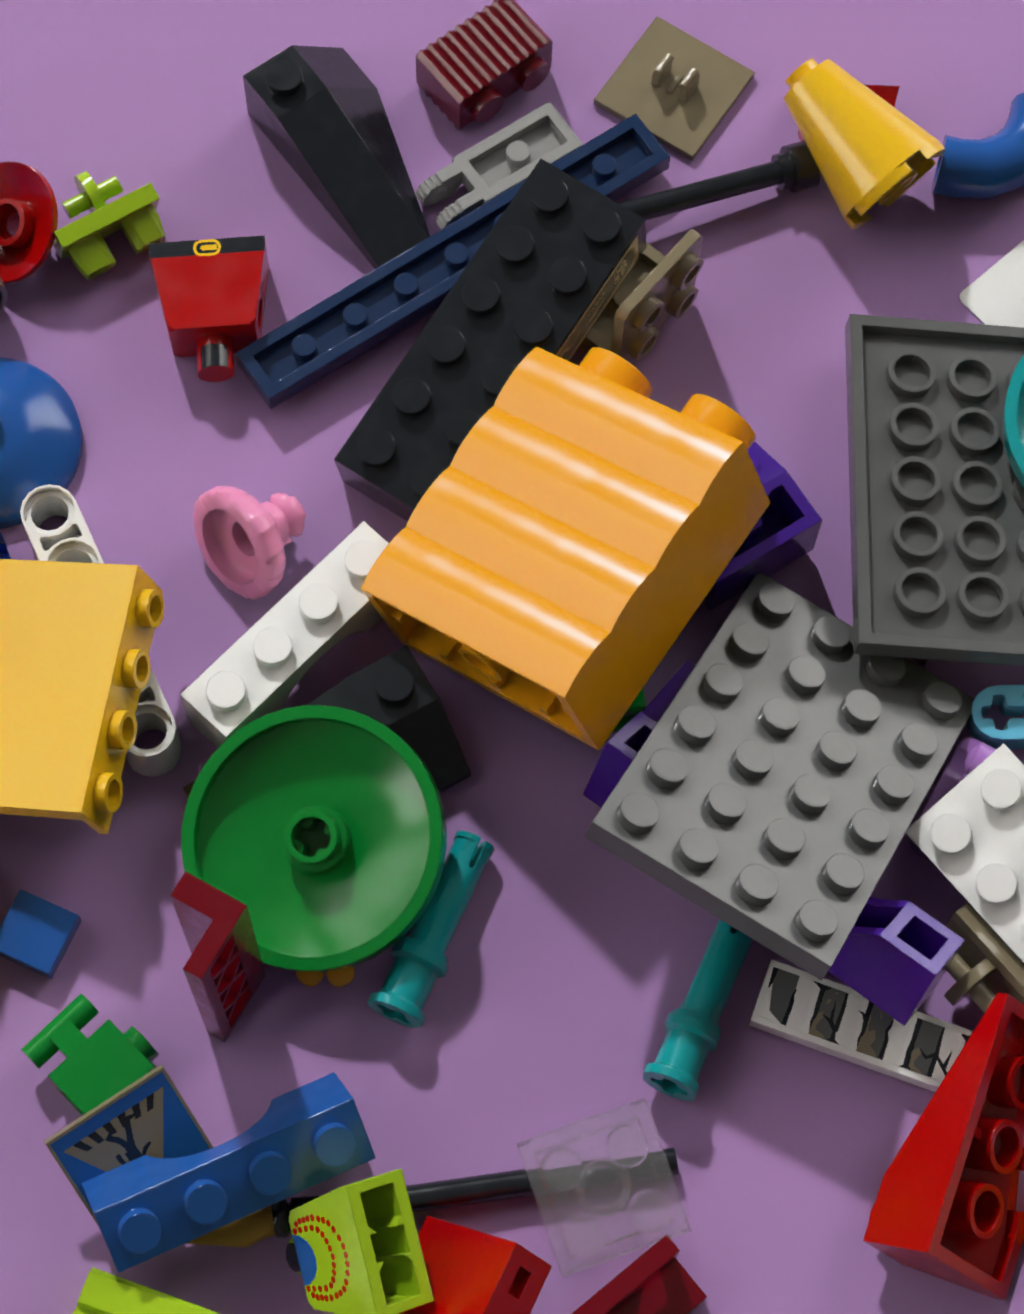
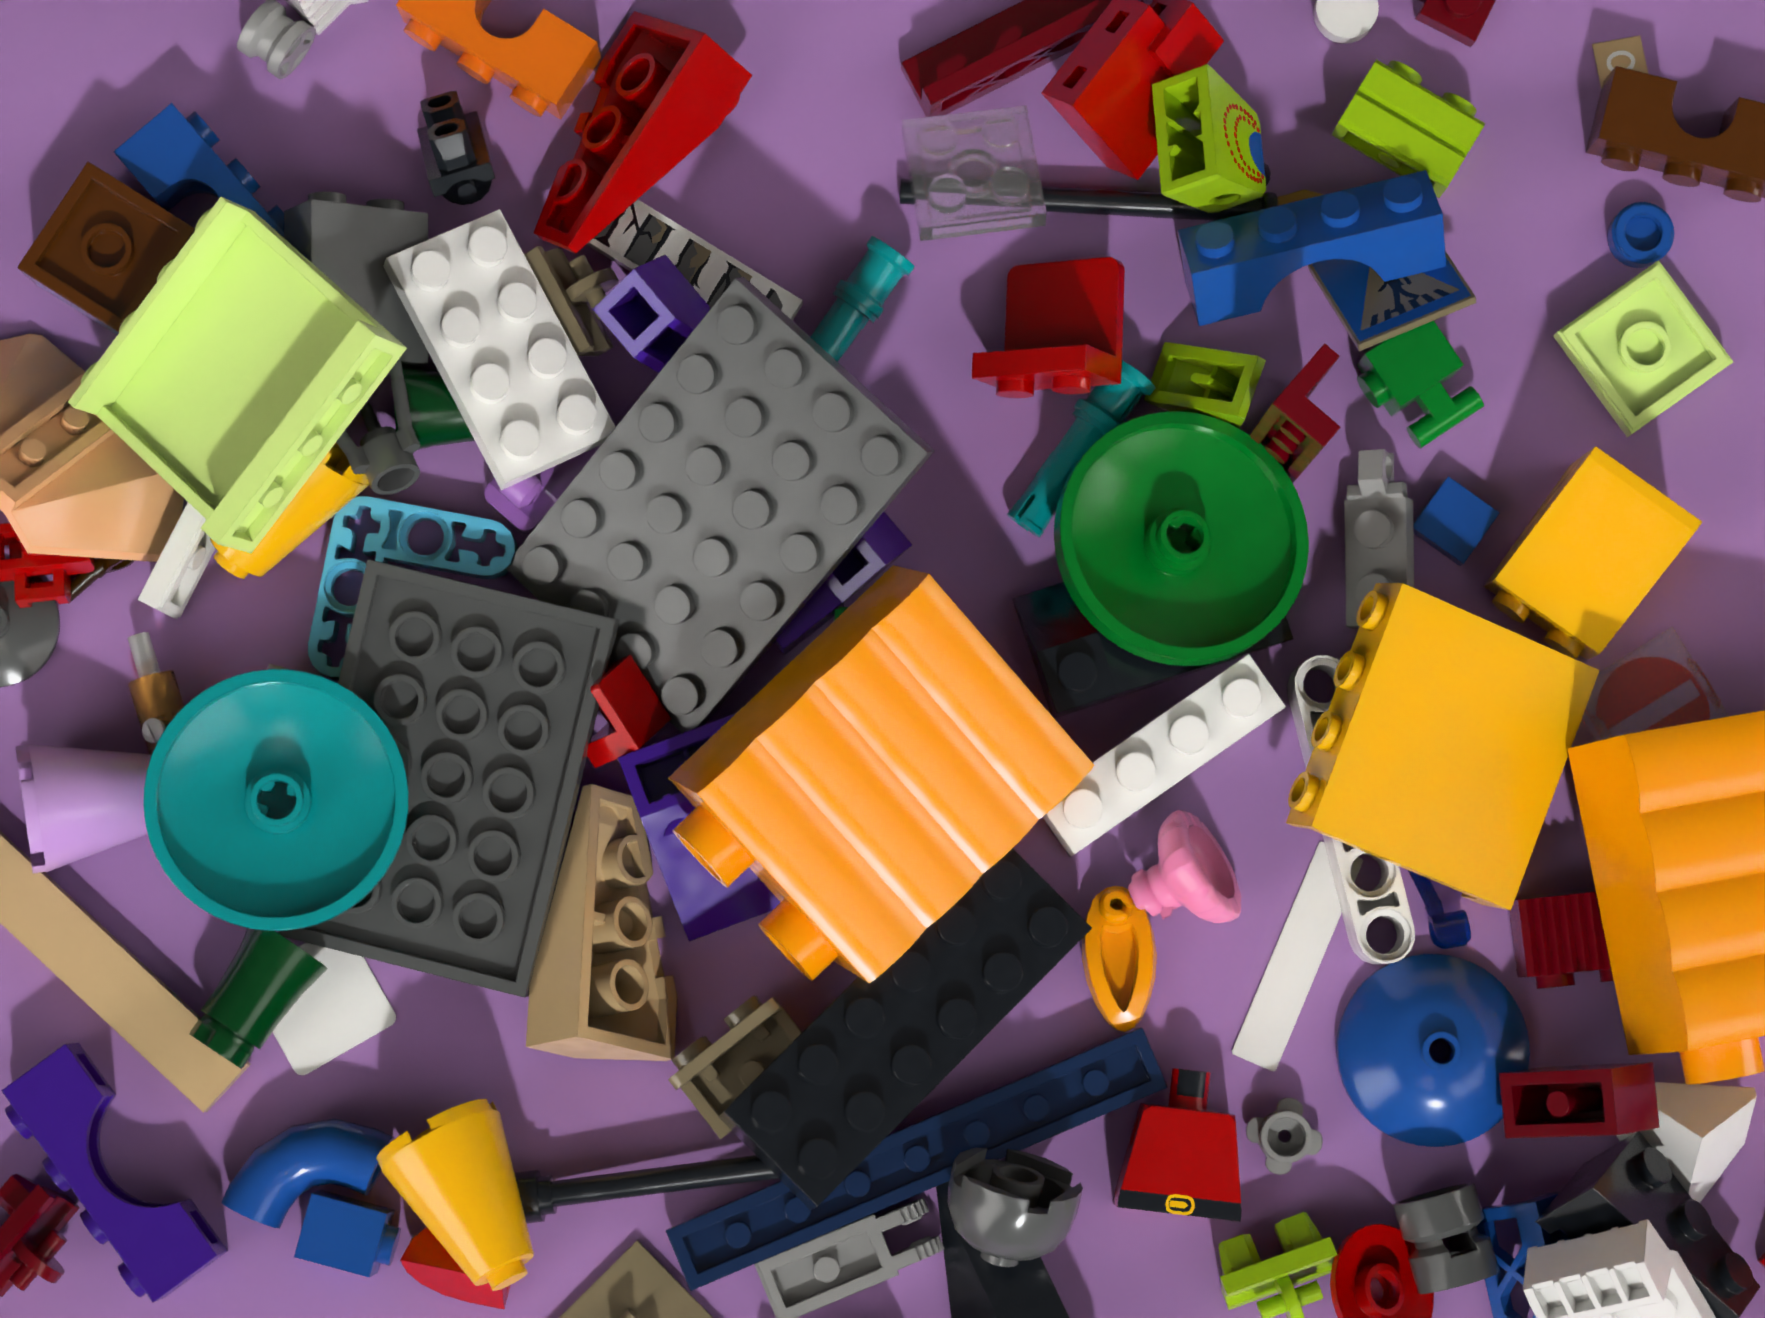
camera: 170 degrees left, 15 degrees up
(111, 894) = (1376, 530): none -> light grey hinge
(116, 324) = (1302, 1138): none -> light grey plate
(137, 482) = (1292, 965): none -> white sticker
(302, 460) = (1119, 957): none -> light orange arm
(314, 1014) = (1205, 381): none -> lime slope
(362, 214) = (1011, 1206): none -> dark grey cylinder
(478, 1028) = (1058, 329): none -> red bracket
(788, 370) = (599, 960): none -> tan wedge
(824, 572) = (629, 708): none -> red panel
(952, 101) = (347, 1234): none -> blue brick

